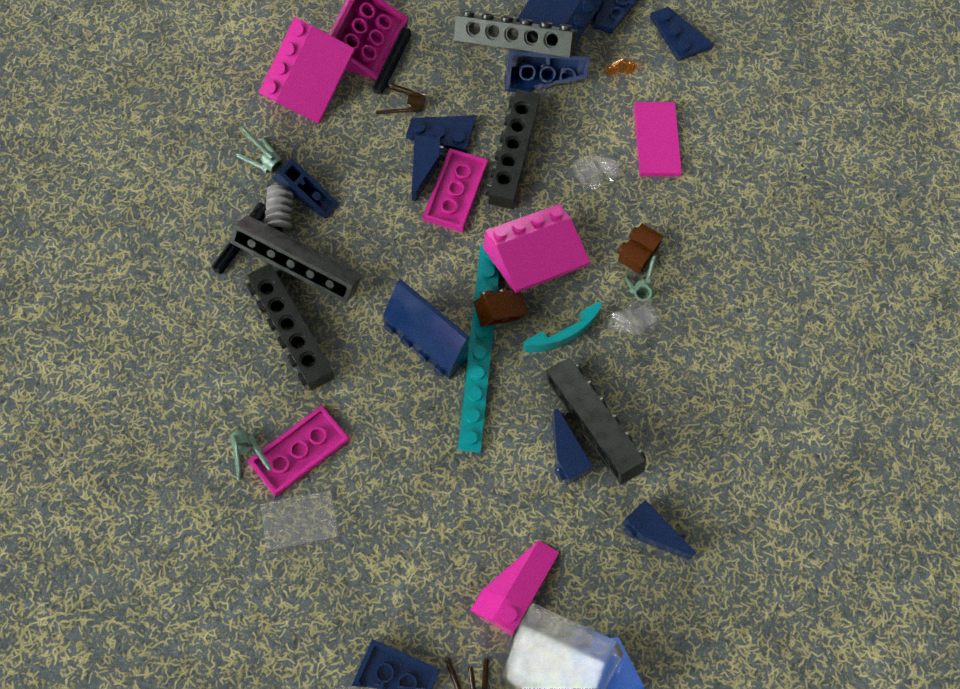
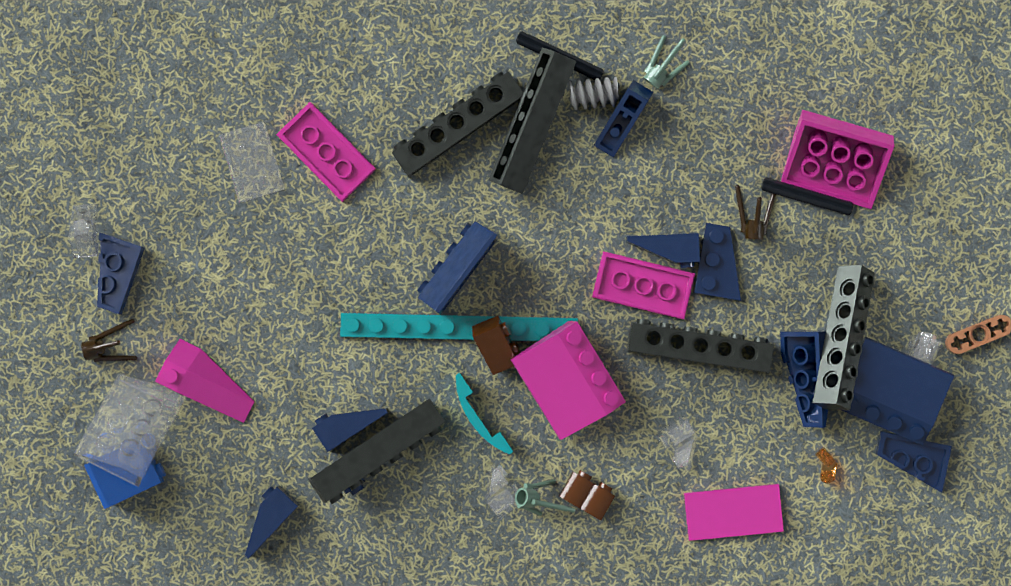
camera: 90 degrees right, 20 degrees up
(241, 444) = (325, 93): sand green plant -> none
(306, 70) = (768, 101): dark pink slope -> none
(679, 34) = (882, 536): dark blue wing -> none

